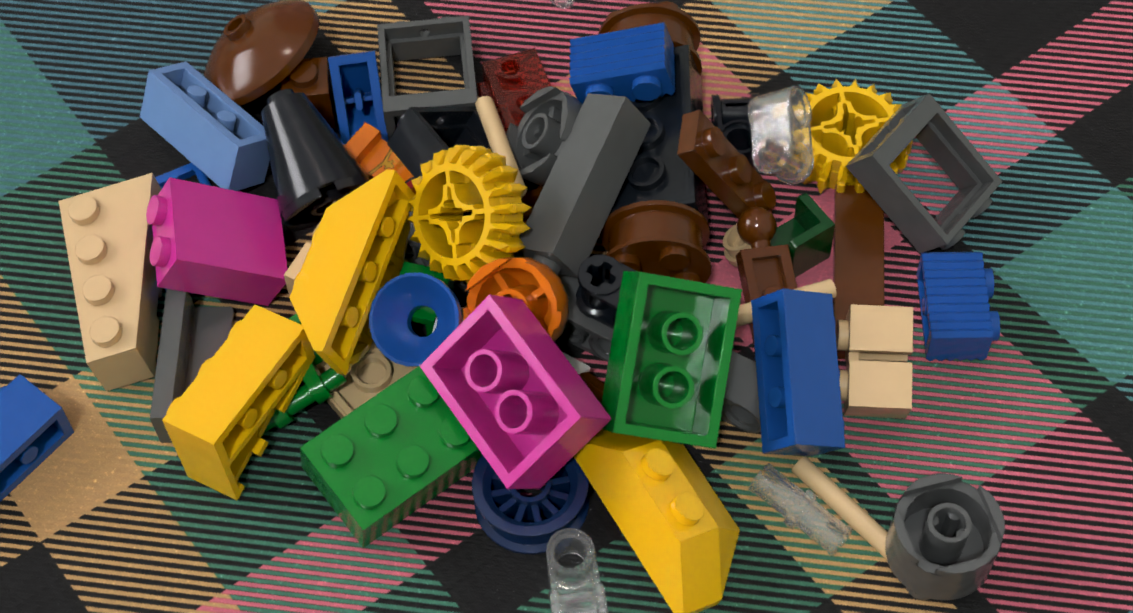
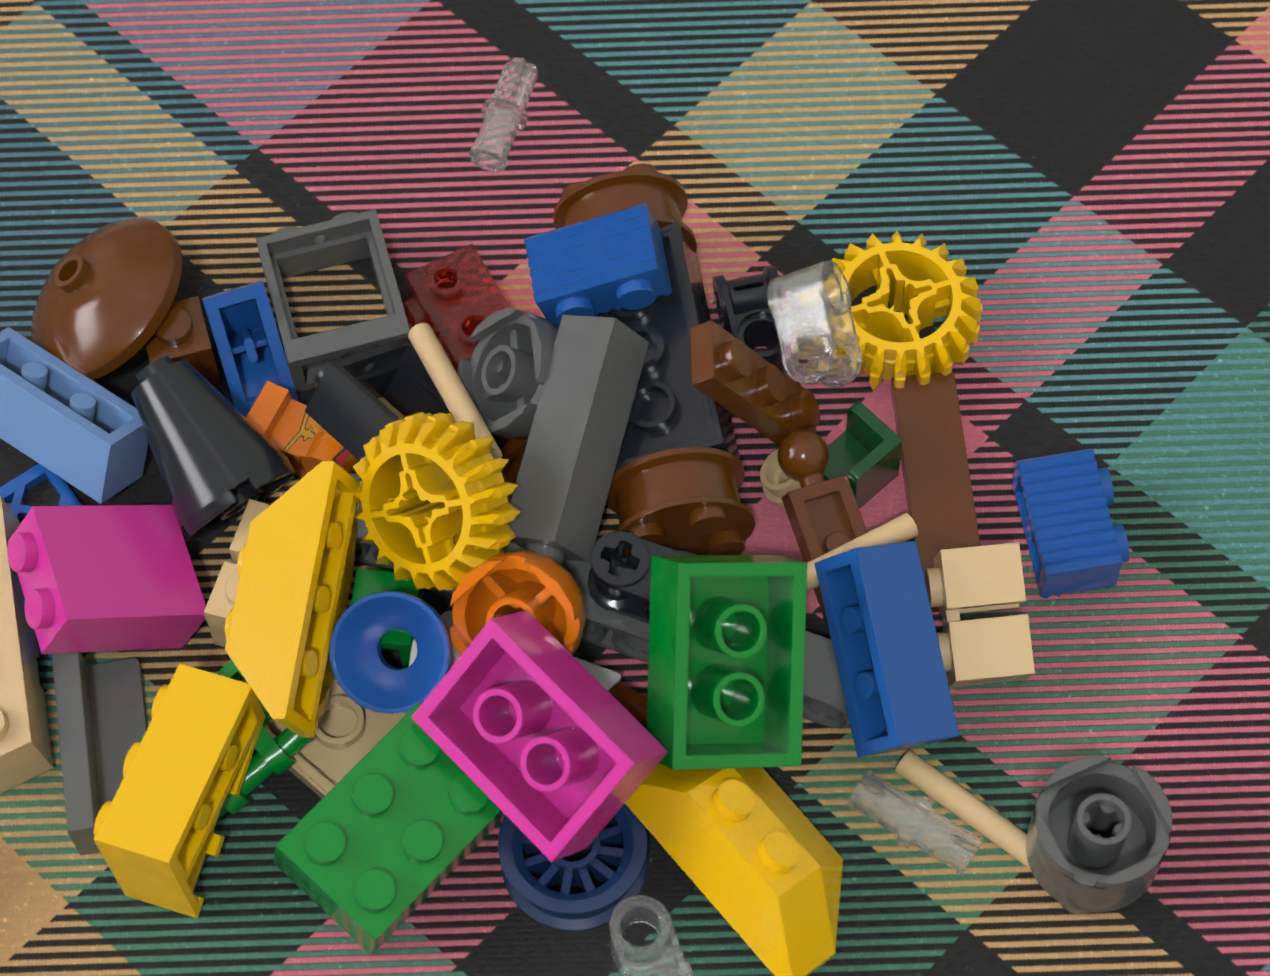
camera: 10 degrees left, 5 degrees up
(953, 153) = (956, 320): dark grey window -> none

